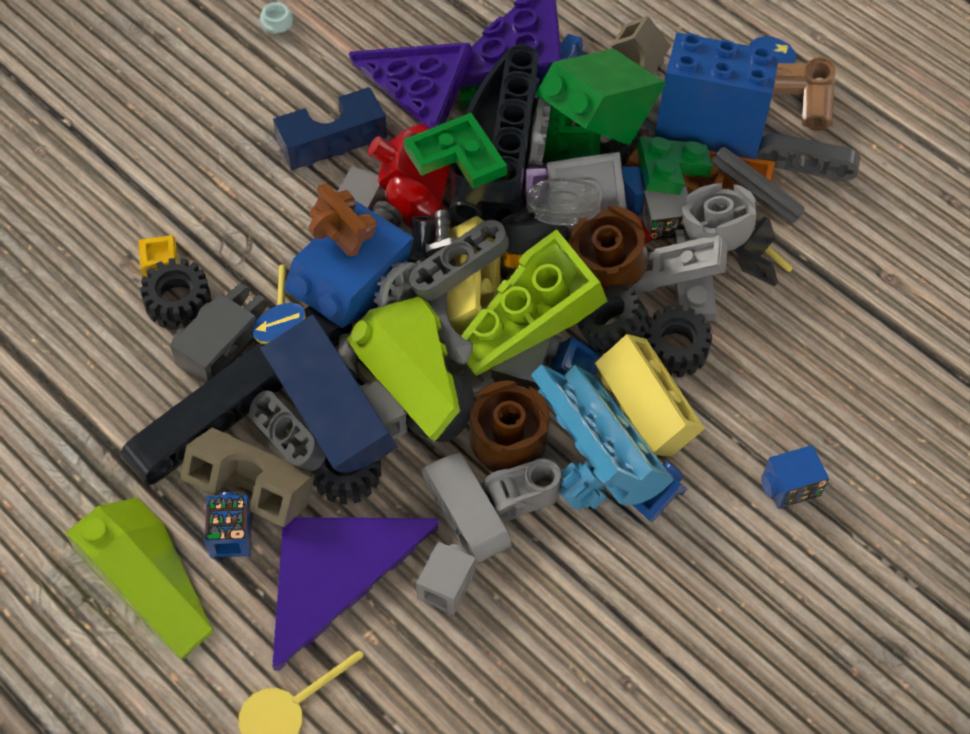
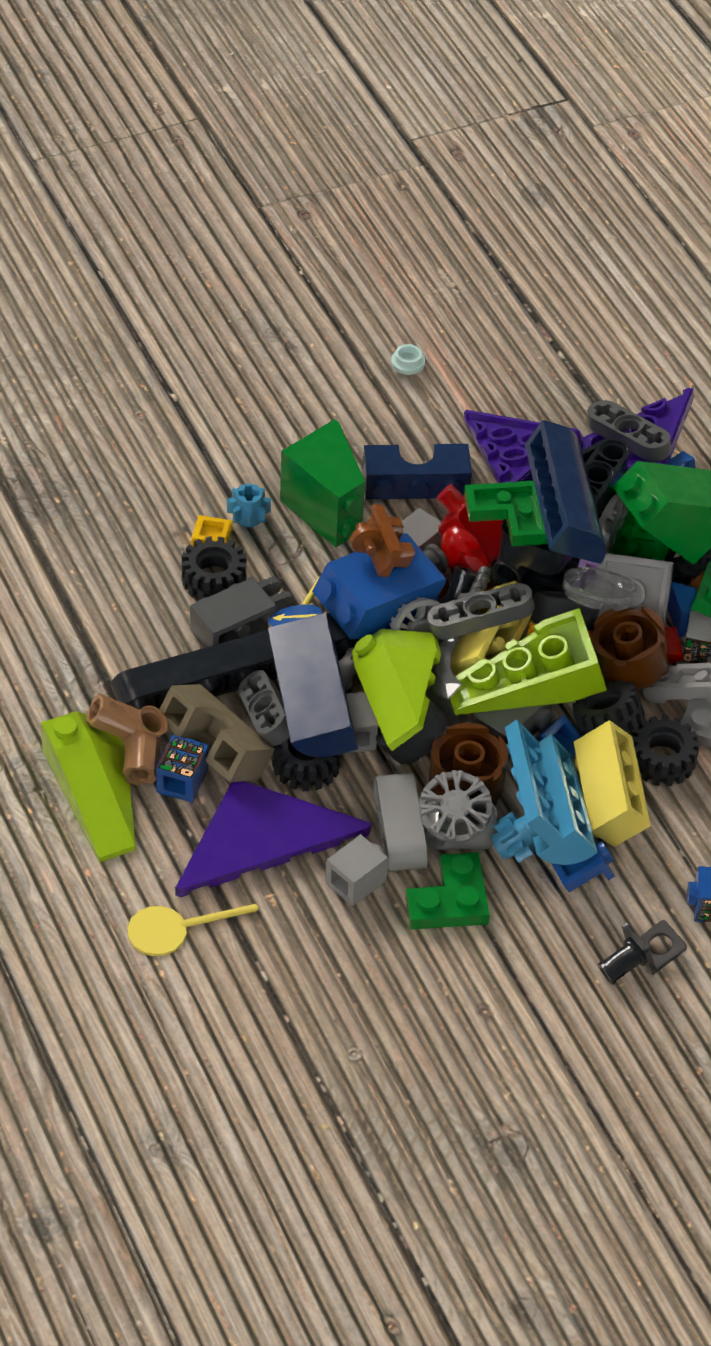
camera: 20 degrees right, 10 degrees down
(170, 502) = (138, 731): none -> medium nougat piece
(184, 214) = (248, 505): none -> dark azure gear
(251, 170) = (324, 483): none -> green slope
(492, 24) = (647, 442): none -> dark grey beam
(503, 118) = (564, 493): none -> dark blue brick
(519, 479) = (455, 806): none -> light grey wheel
(555, 569) = (456, 902): none -> green plate
(750, 569) = (637, 952): none -> black bracket

